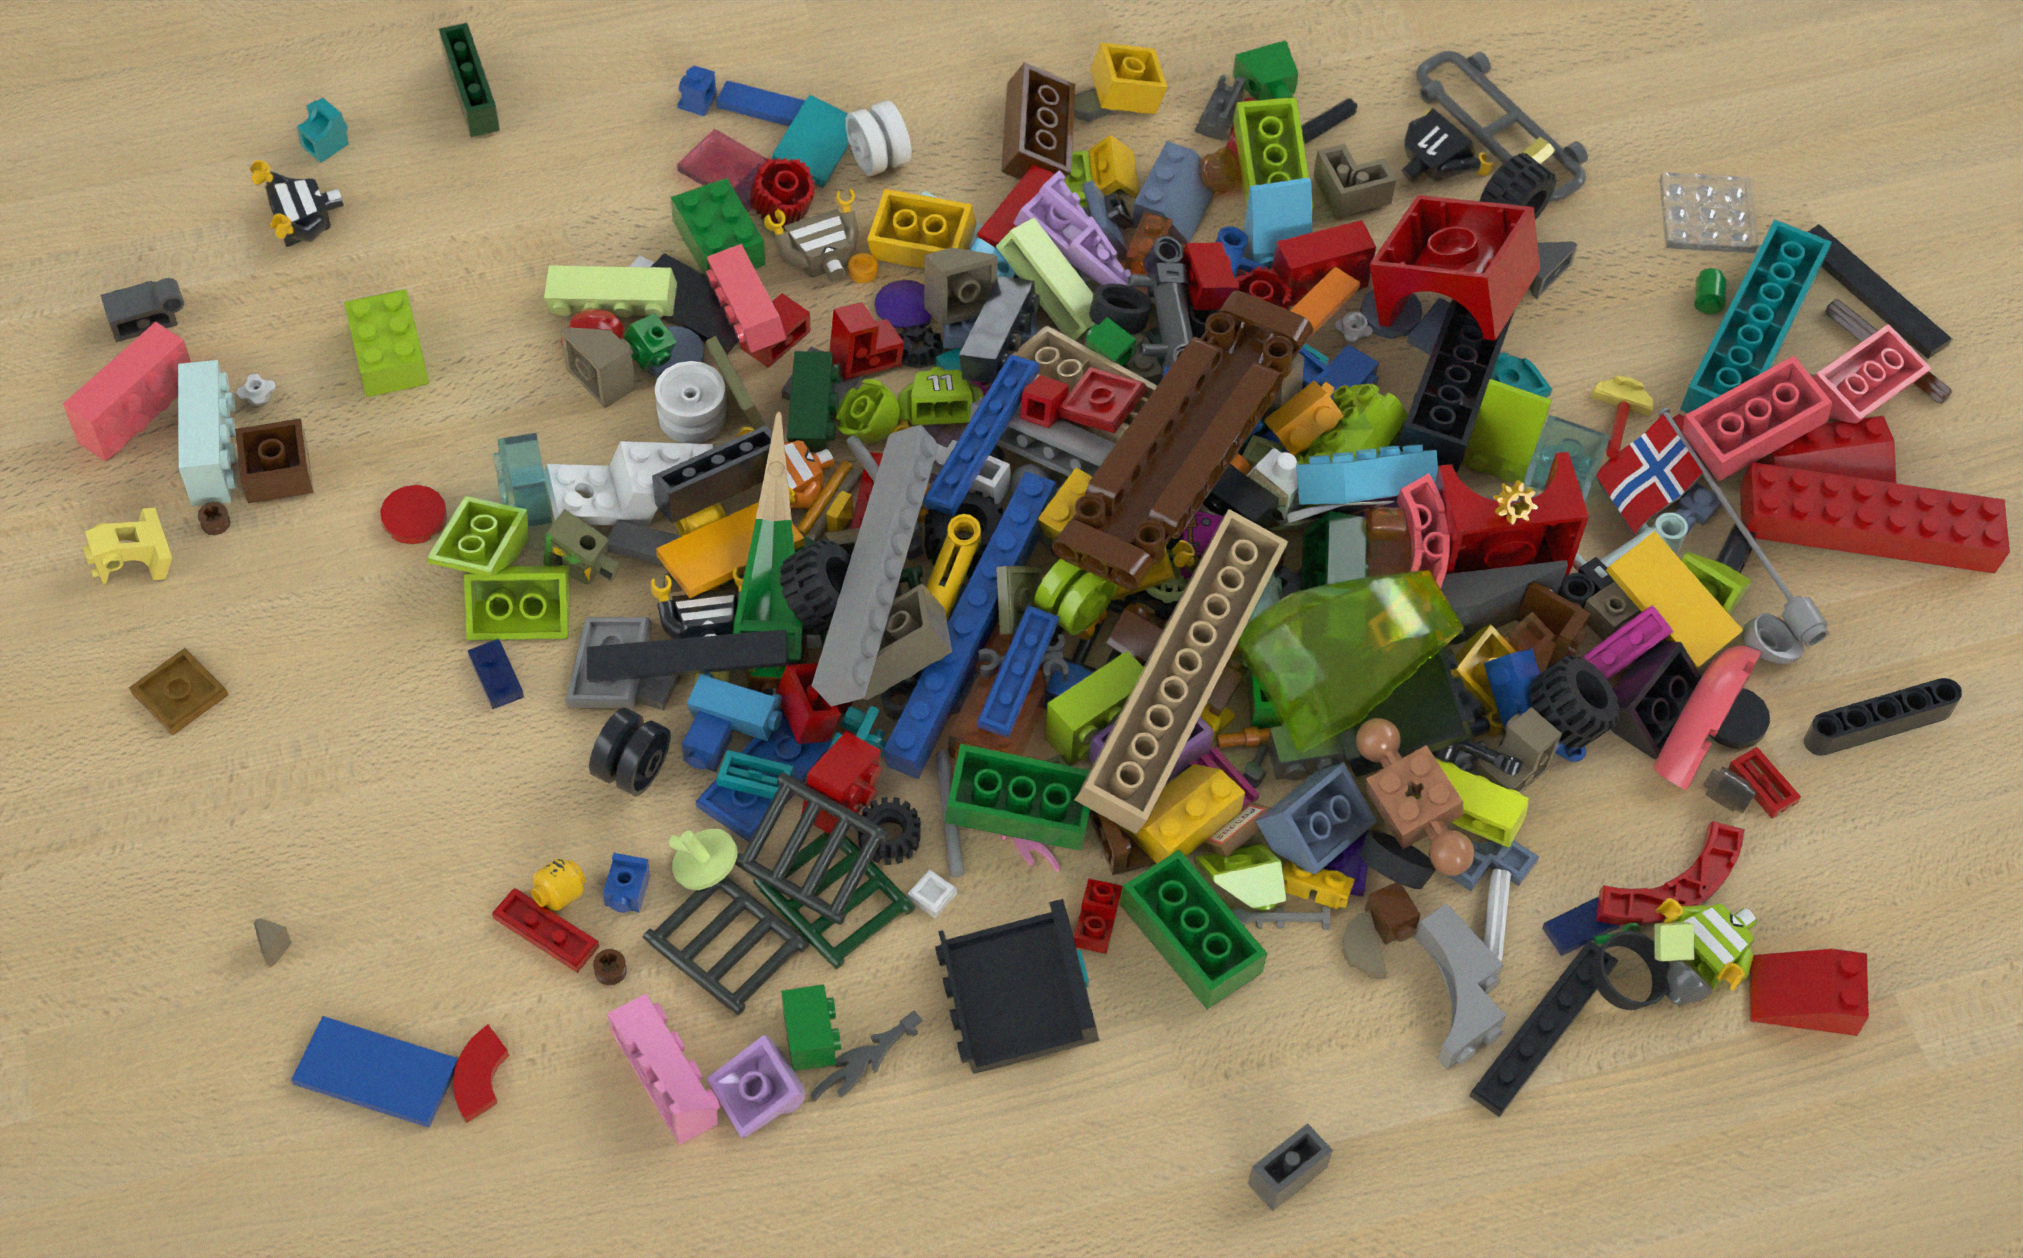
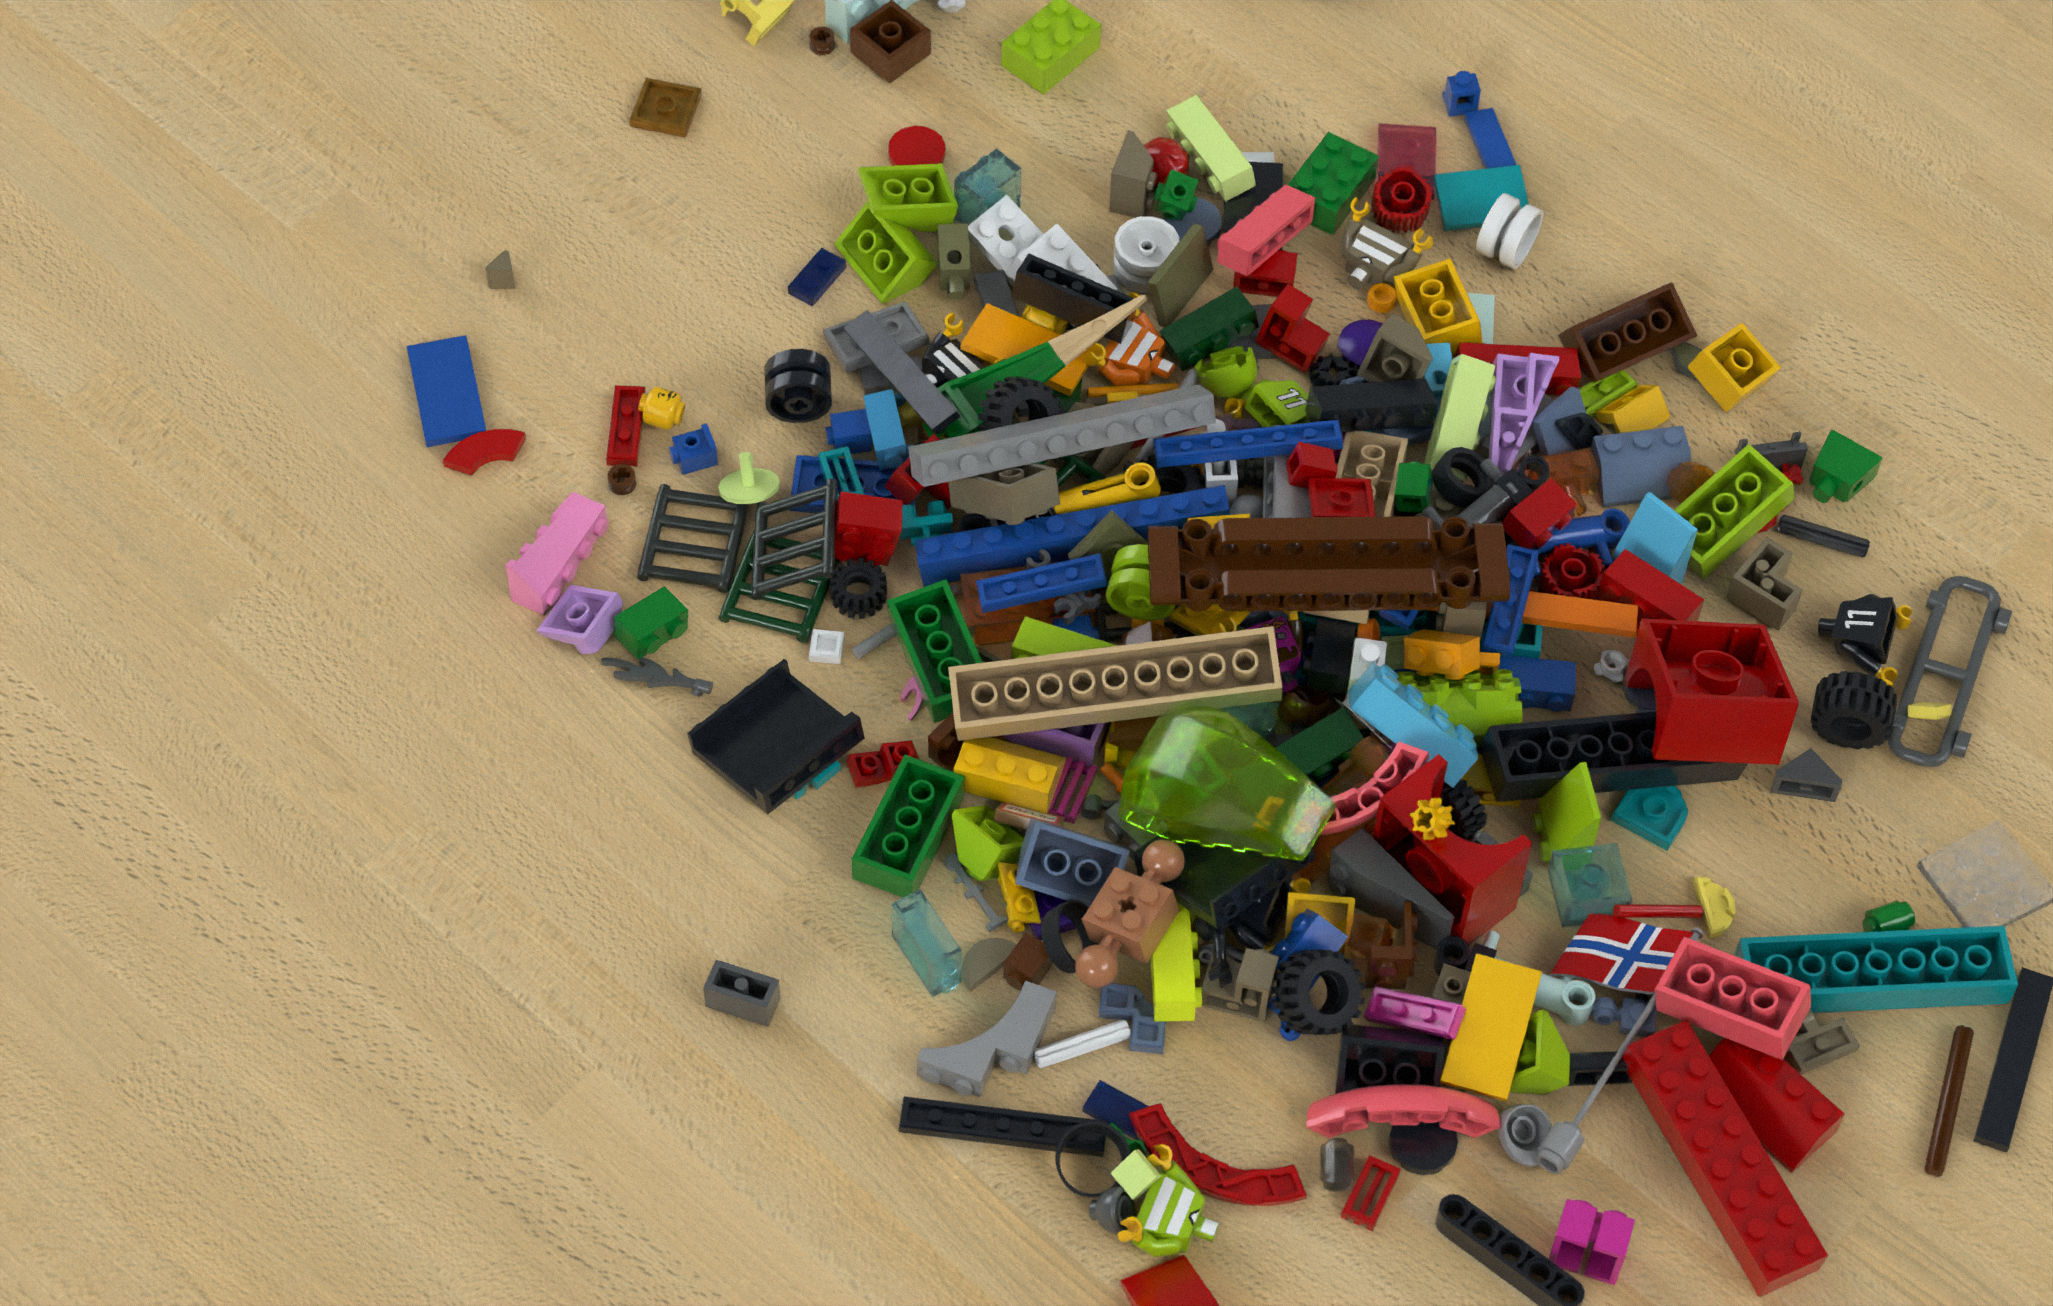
camera: 60 degrees right, 0 degrees up
(1334, 979) = (926, 943): none -> clear light blue window
(1870, 375) = (1879, 1079): coral slope -> none
(1907, 647) = (1607, 1231): none -> dark pink piece

